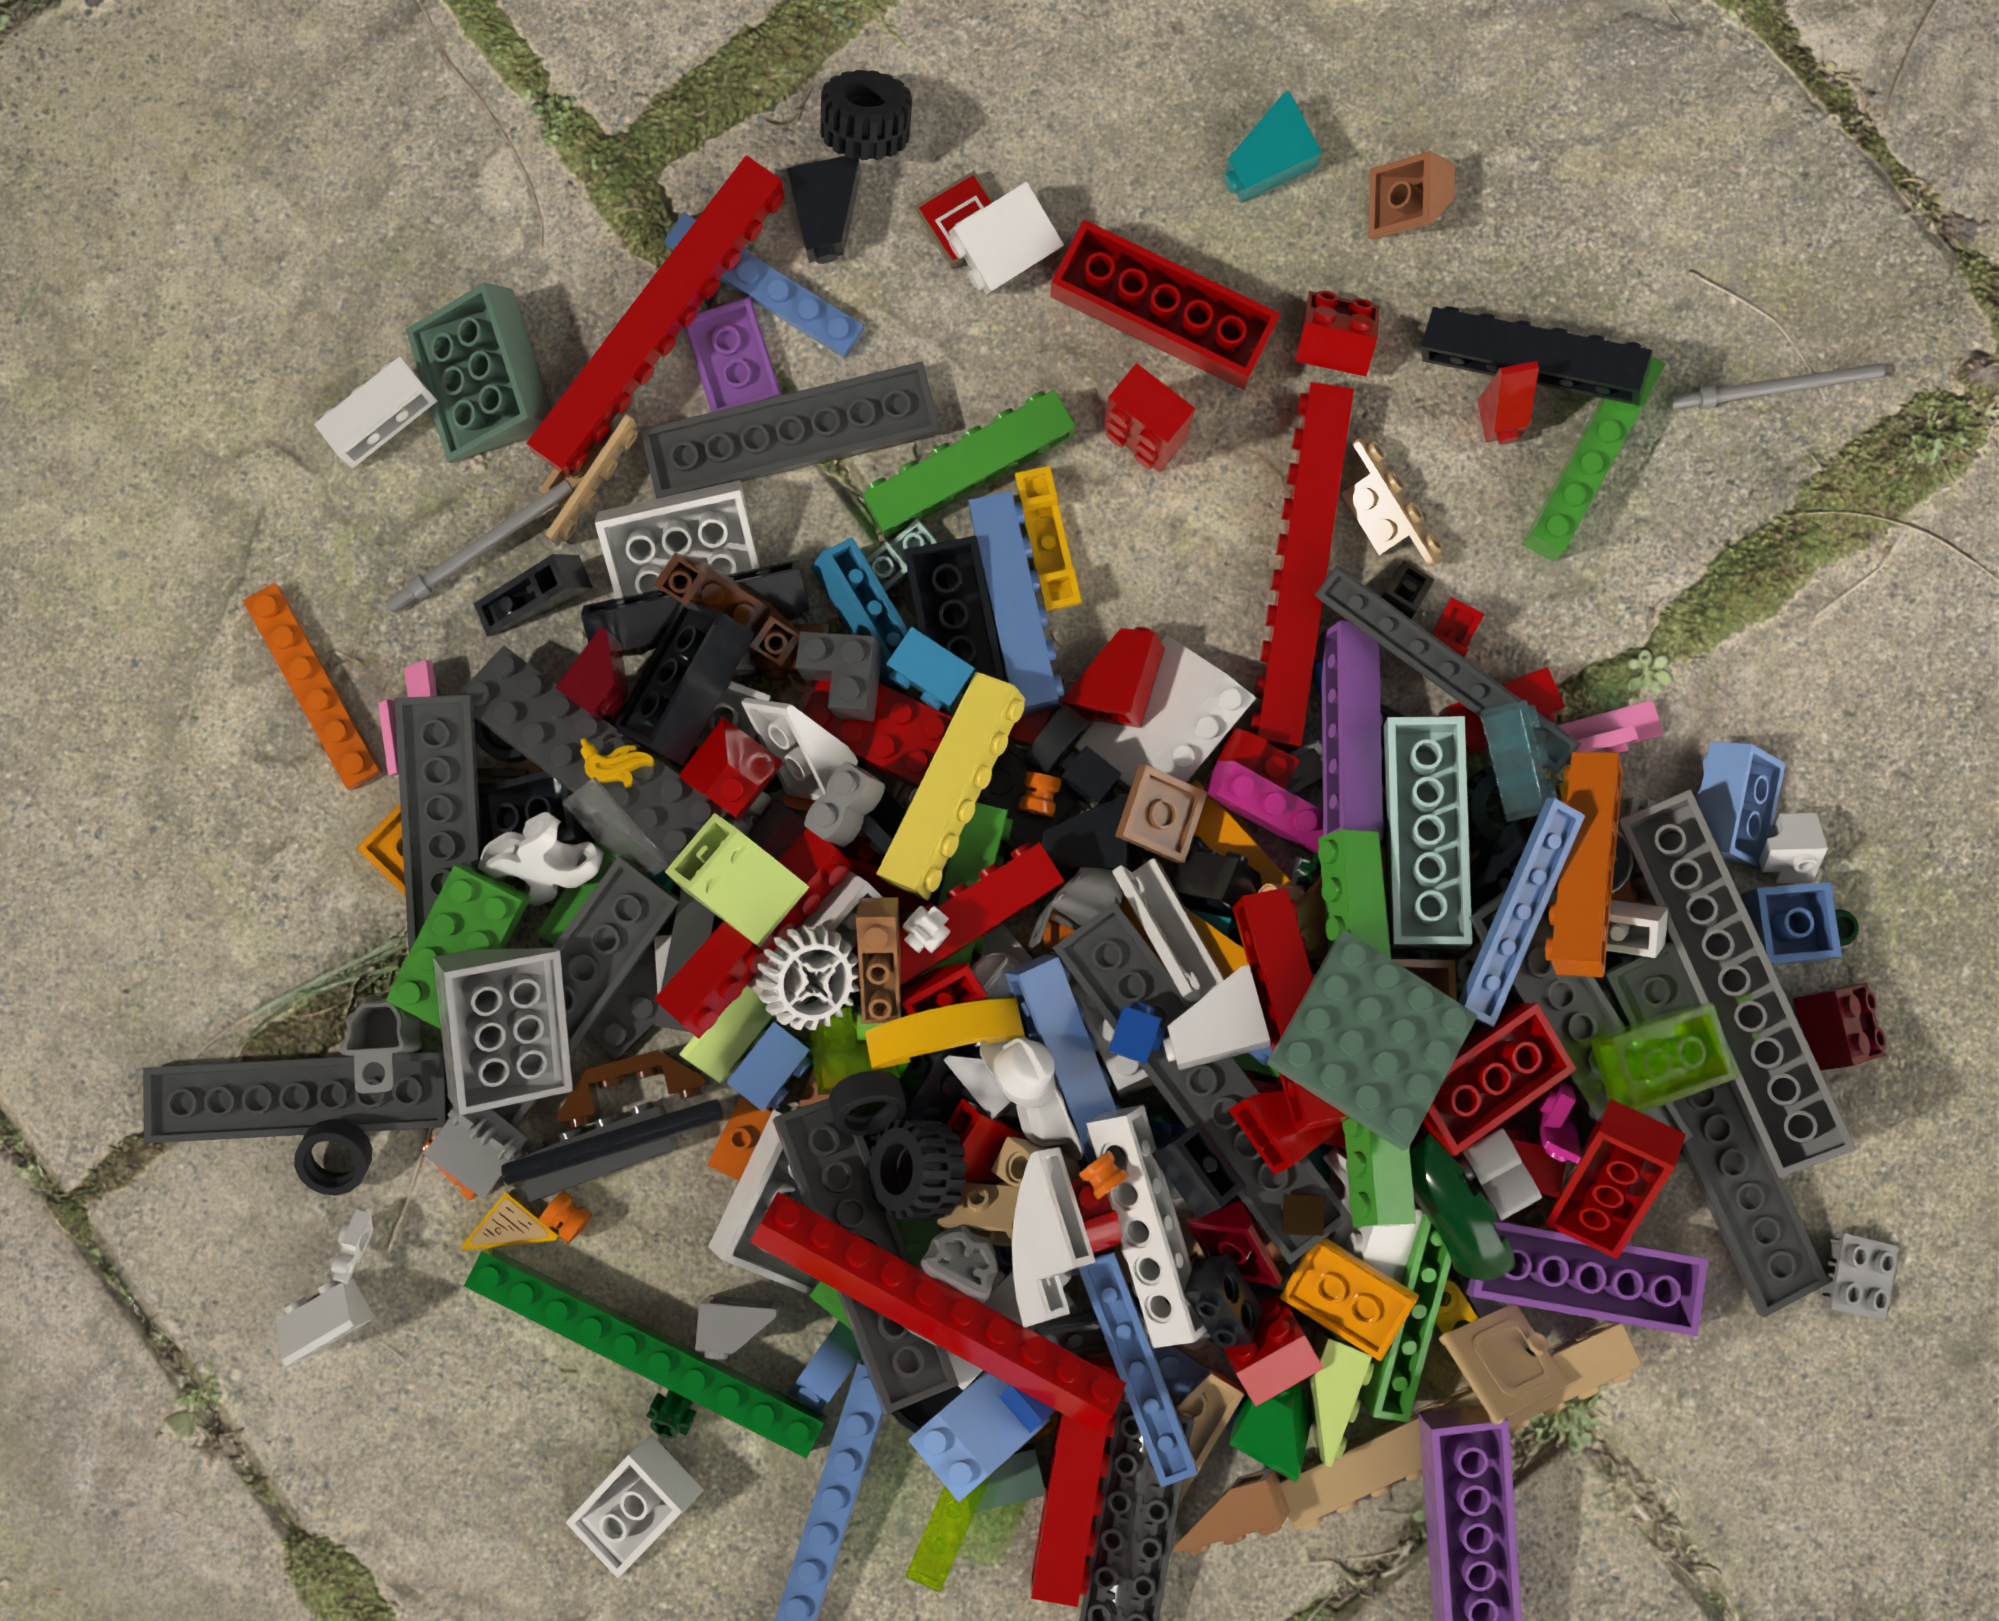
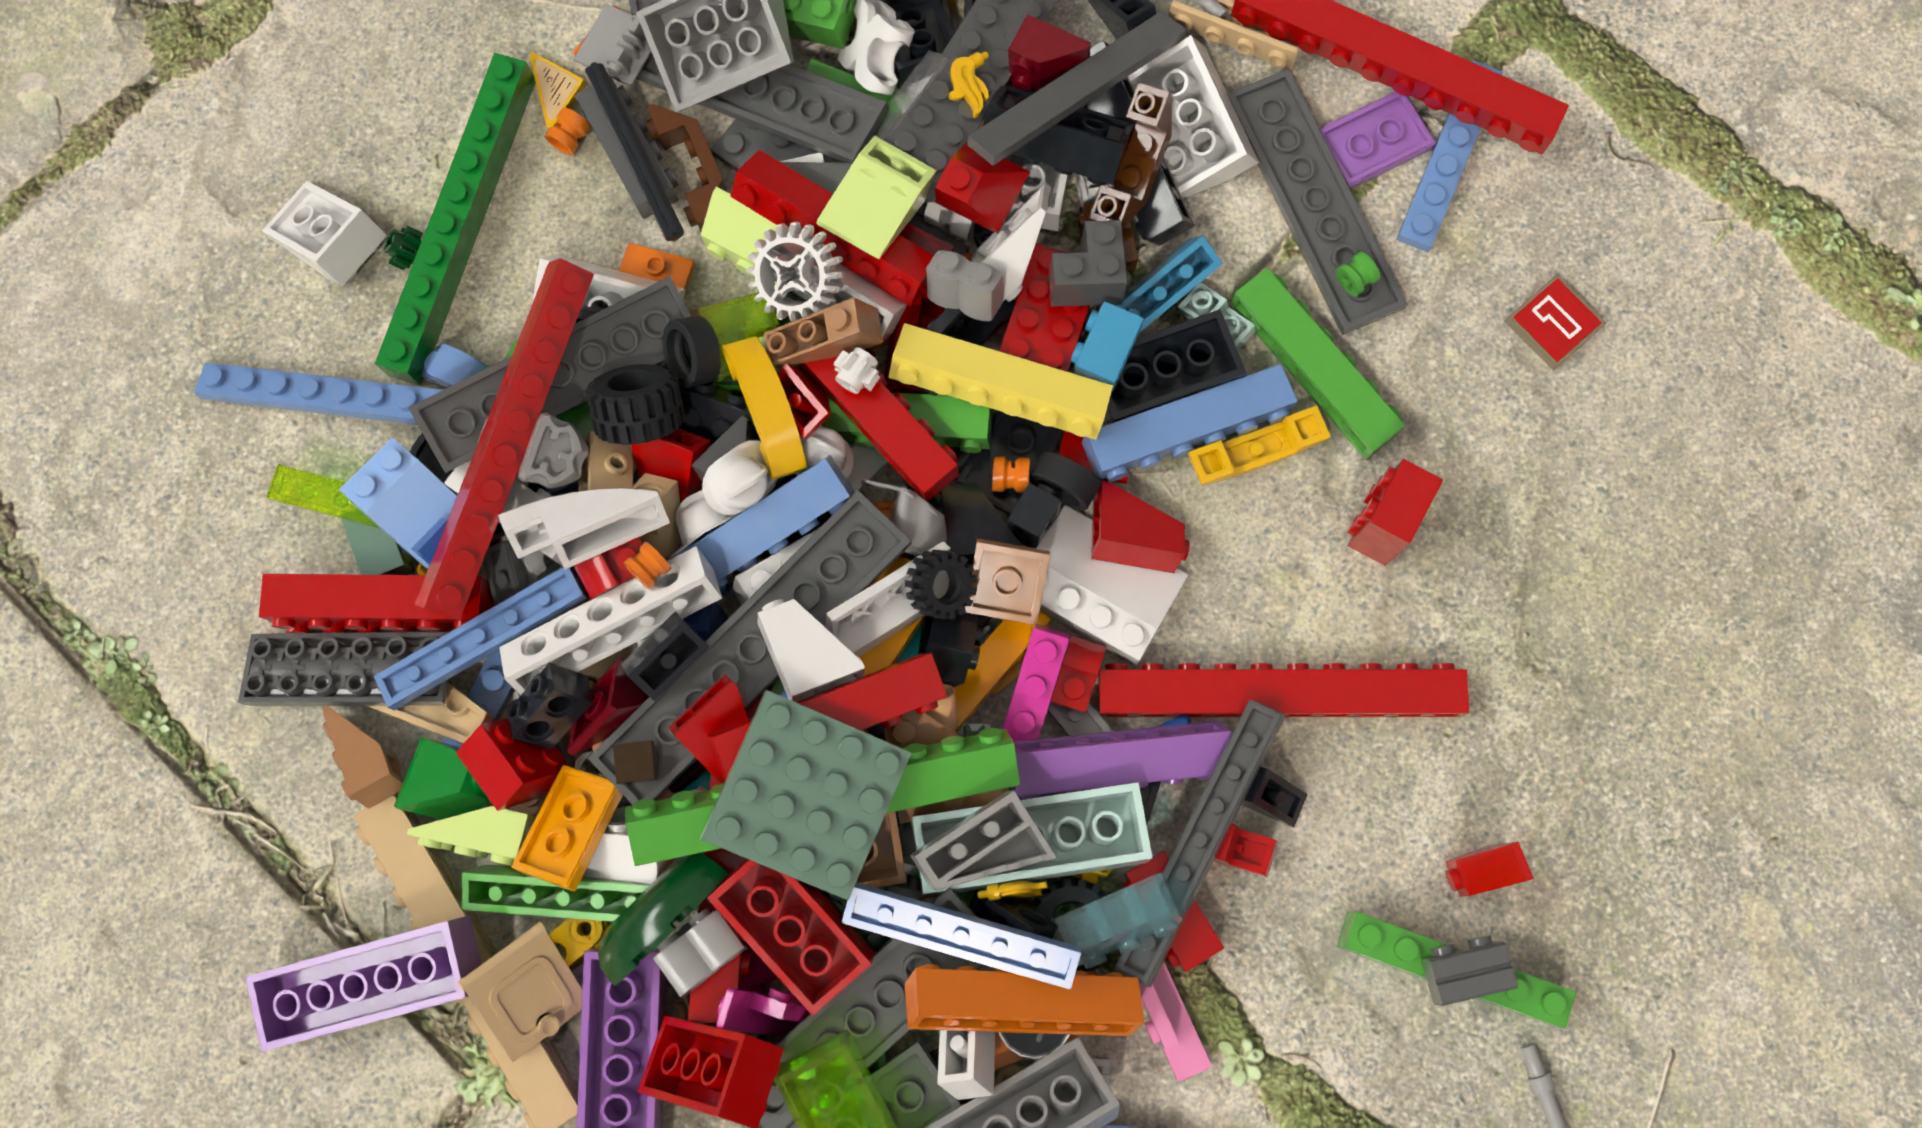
camera: 85 degrees right, 5 degrees down
(645, 650) = (1075, 88): none -> dark grey tile
(731, 1322) = (489, 279): light grey slope -> none
(772, 1067) = (714, 271): medium blue brick -> none
(825, 204) = (1540, 193): black slope -> none
(865, 114) = (1635, 208): black tyre -> none
(886, 403) = (1358, 274): none -> bright green wheel
(1004, 238) = (1544, 357): white brick -> none
(1136, 1033) = (784, 574): blue brick -> none
(1149, 890) = (958, 588): none -> black tyre
(1163, 304) = (1513, 518): red brick -> none
(1272, 152) = (1694, 600): teal slope -> none
(1338, 333) = (1523, 692): red slope -> none
(1384, 509) = (1354, 767): bracket -> none
(1409, 193) = (1686, 743): nougat slope -> none
(1438, 876) = (983, 844): none -> light grey wedge
(1476, 859) = (1018, 889): none -> yellow piece
(1564, 359) = (1545, 904): black brick -> none
(1607, 440) = (1469, 972): none -> dark grey brick

